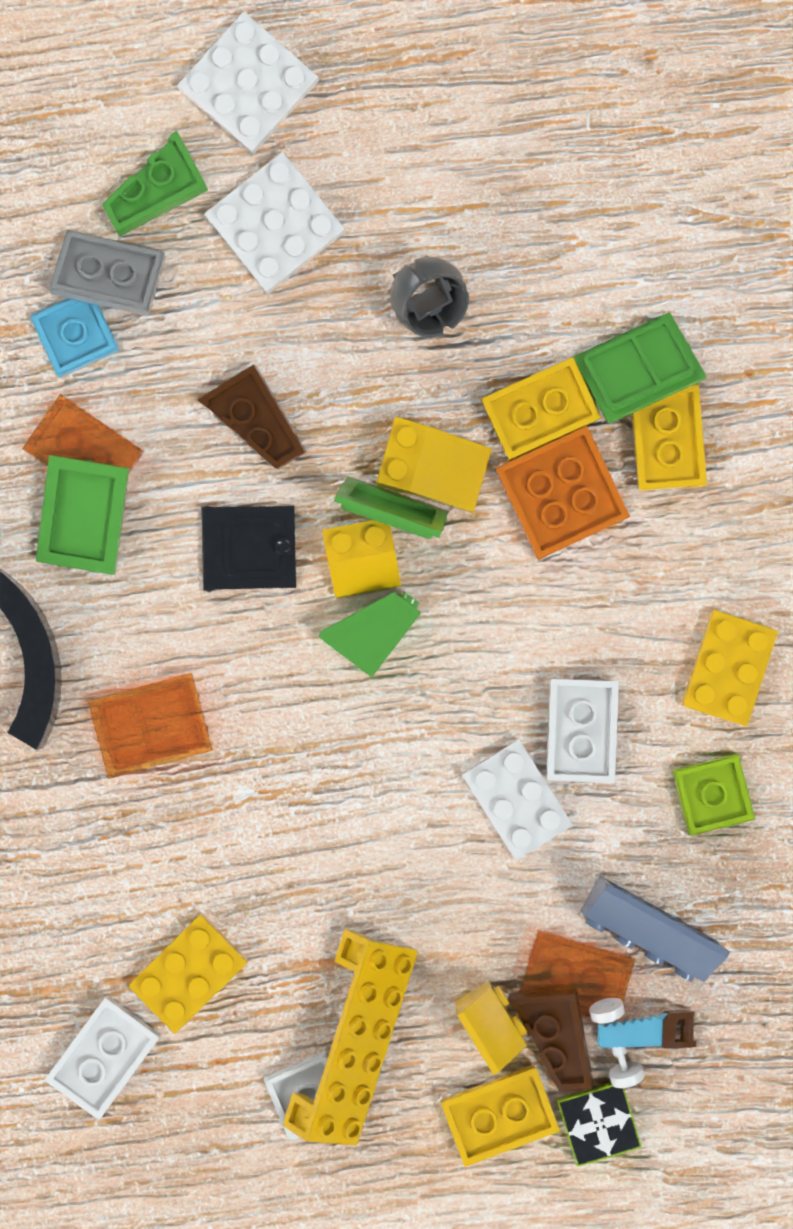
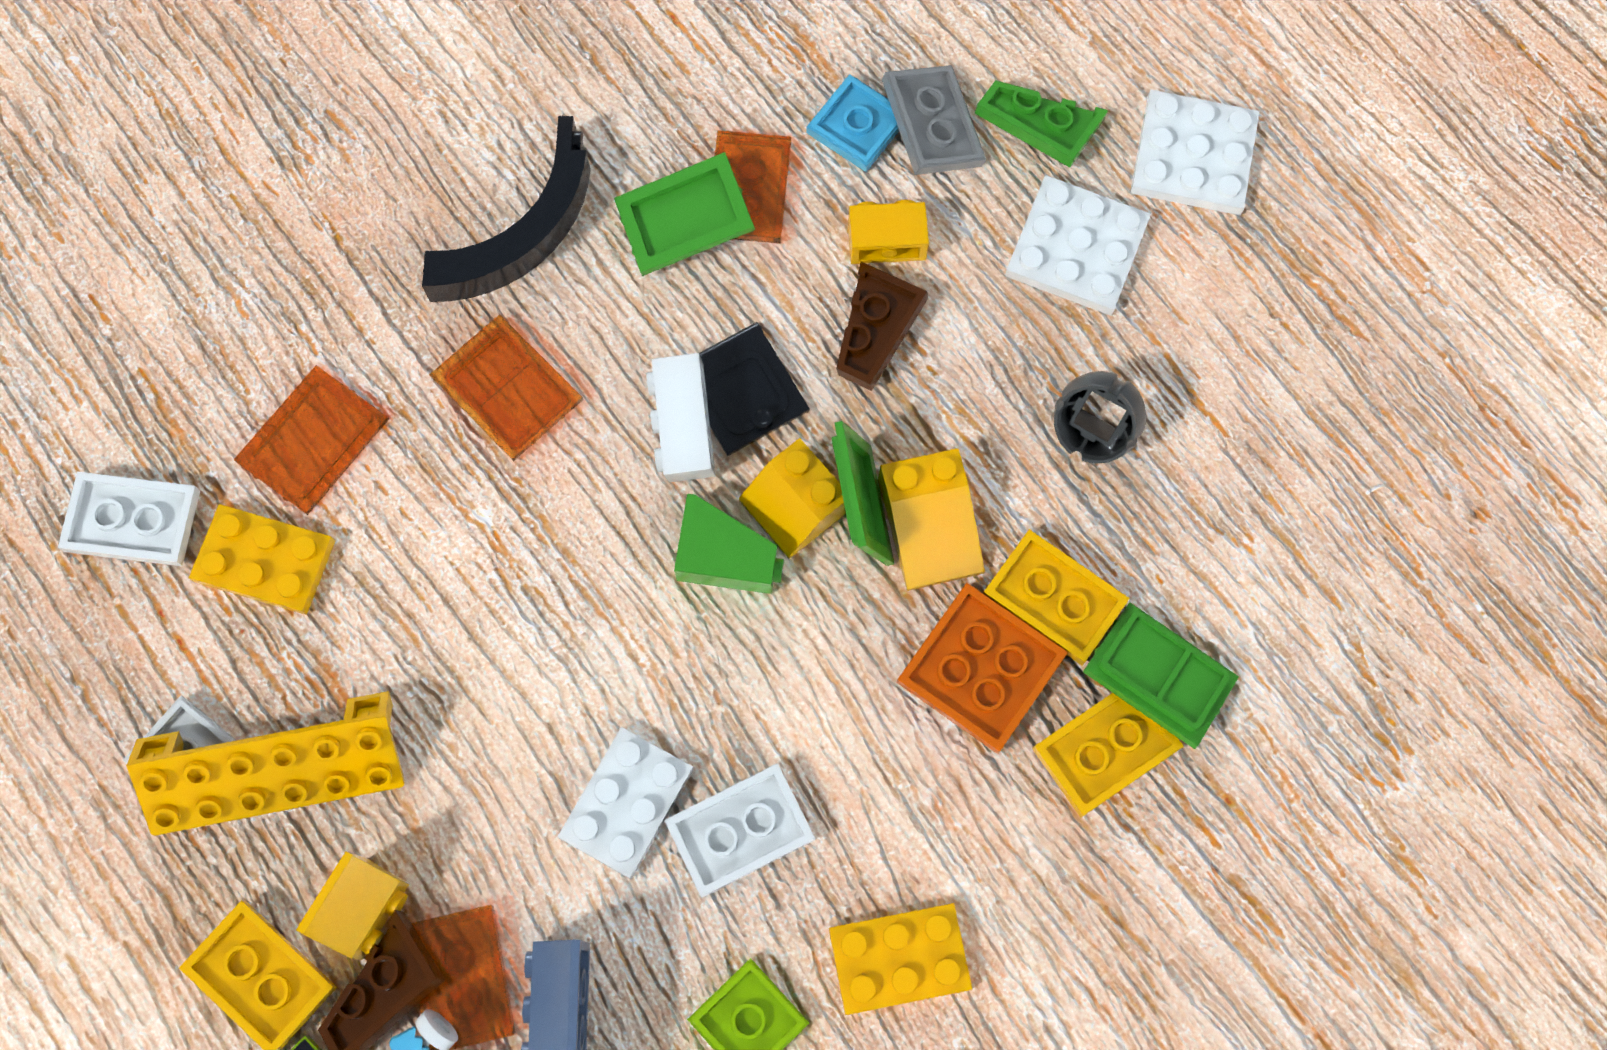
camera: 55 degrees right, 15 degrees down
(110, 892) = (311, 439): none -> clear orange piece
(184, 364) = (888, 232): none -> yellow brick
(252, 608) = (681, 418): none -> white brick

